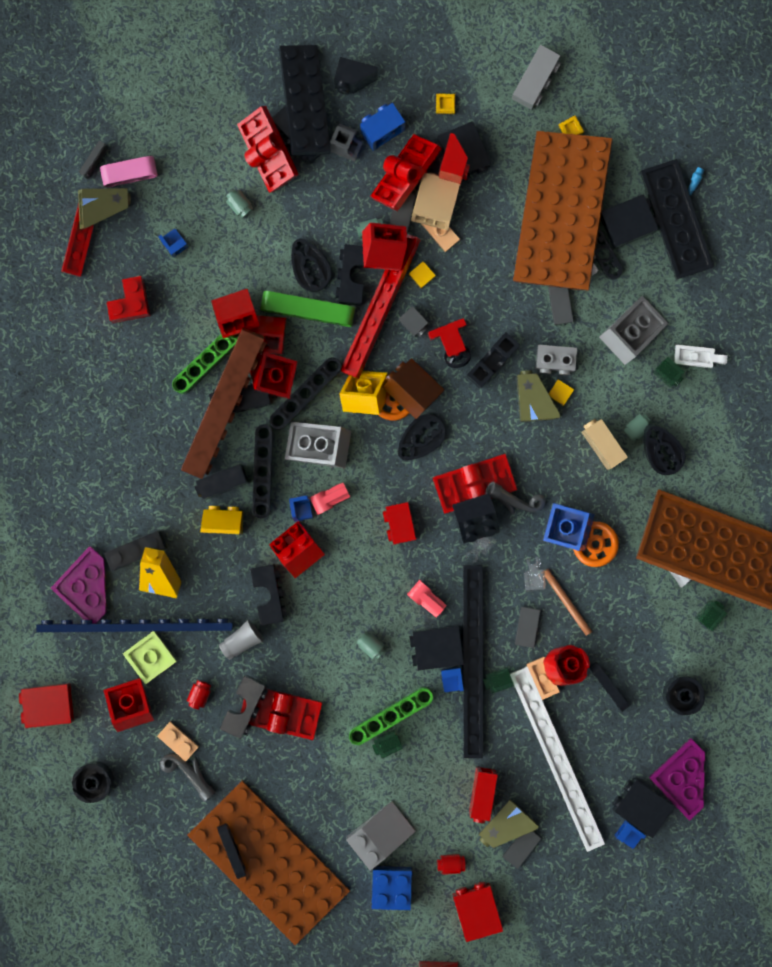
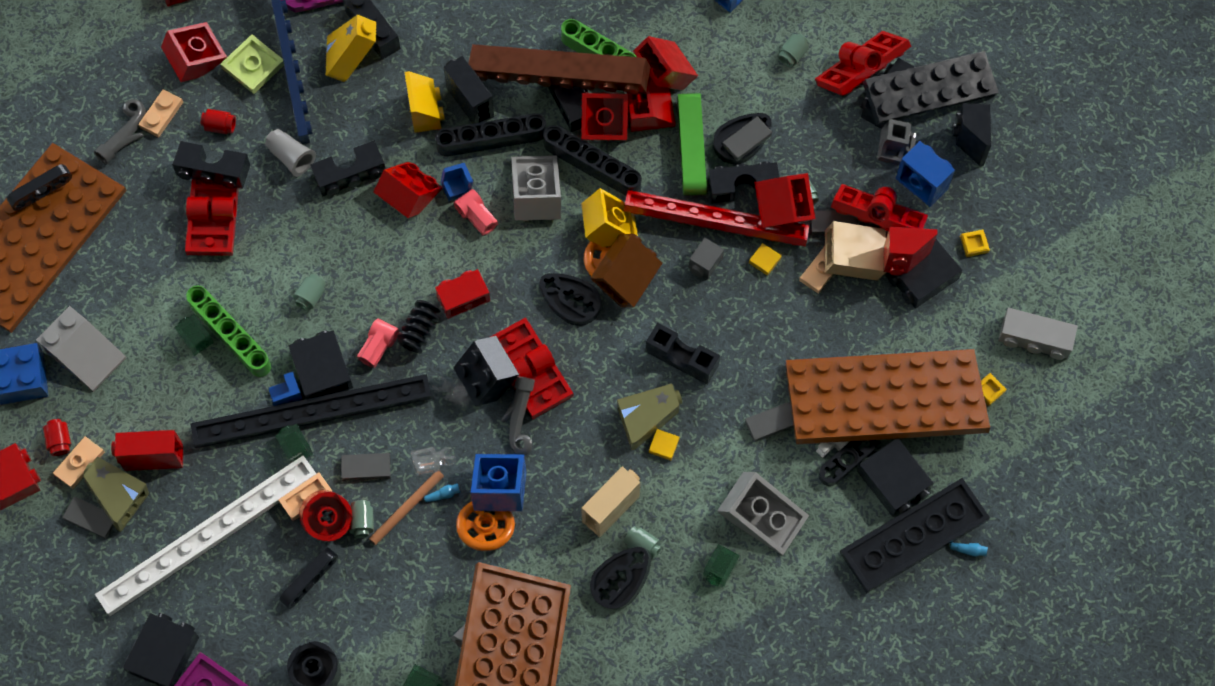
camera: 75 degrees right, 20 degrees down
(82, 778) = (99, 32): black brick -> none
(315, 262) = (747, 138): none -> dark grey tile
(422, 564) = (417, 326): none -> black piece
(452, 342) = (692, 304): red piece -> none
(474, 850) = (73, 467): none -> light nougat plate
(556, 359) = (703, 428): light grey brick -> none
(562, 570) = (445, 492): none -> dark azure piece
(571, 637) = (362, 519): none -> sand green brick
(629, 834) = (123, 642): blue panel -> none
(697, 356) = (749, 597): white plate -> none

